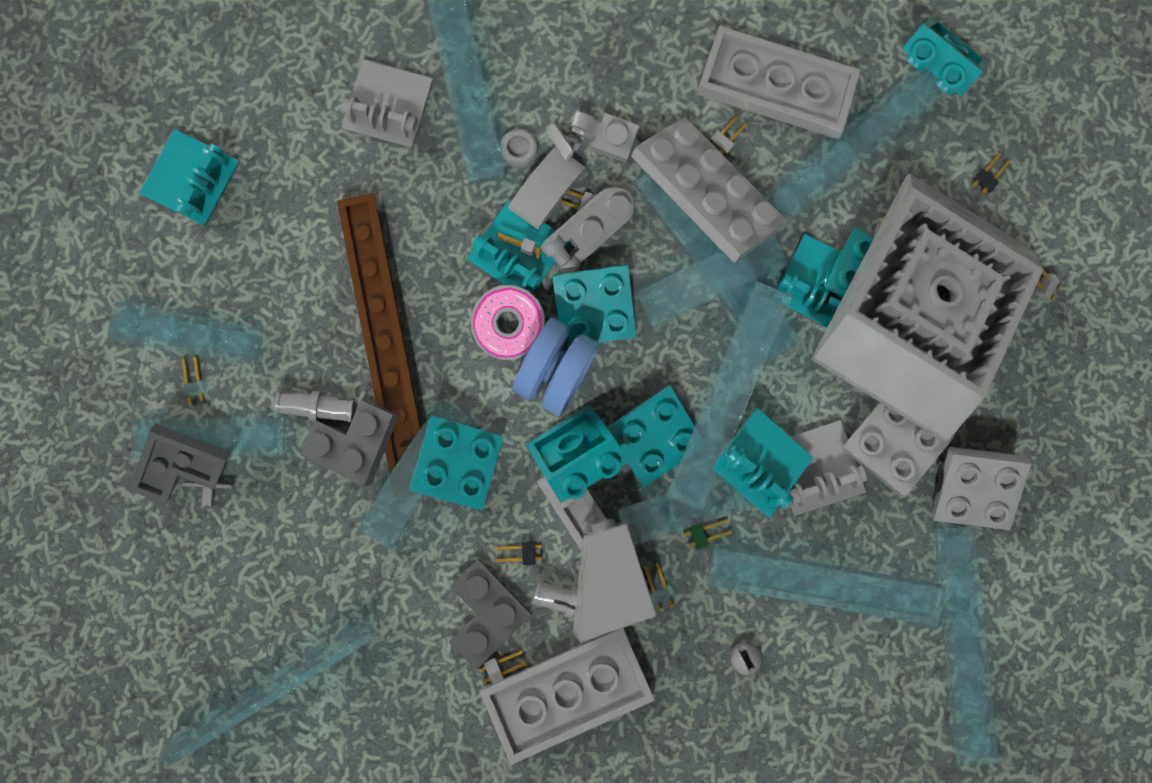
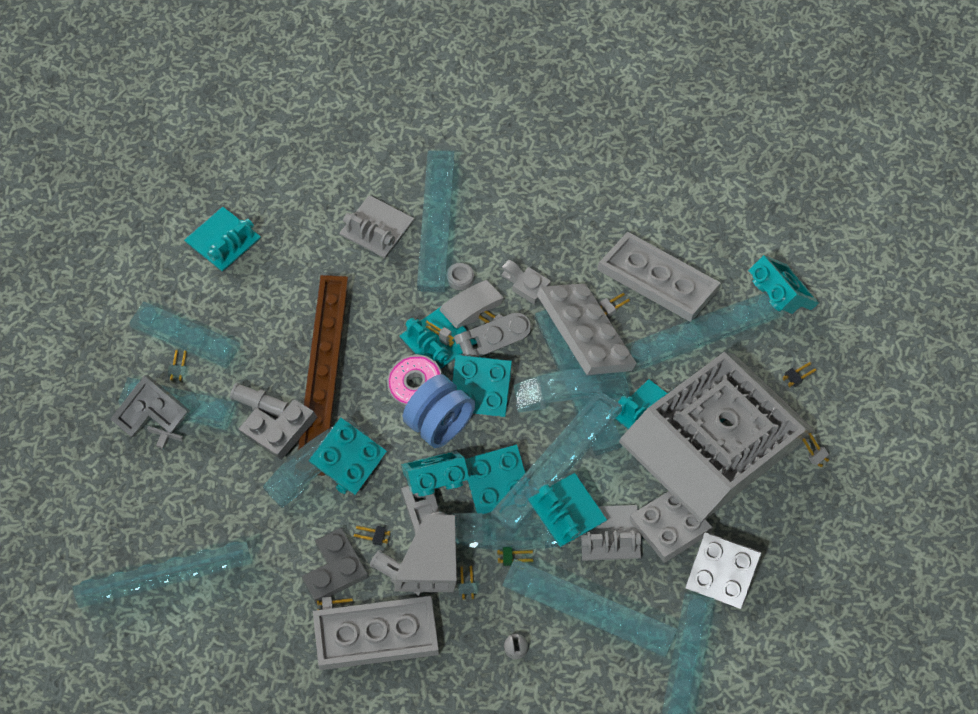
camera: 15 degrees right, 25 degrees down
(565, 144) = (493, 279): light grey piece -> none

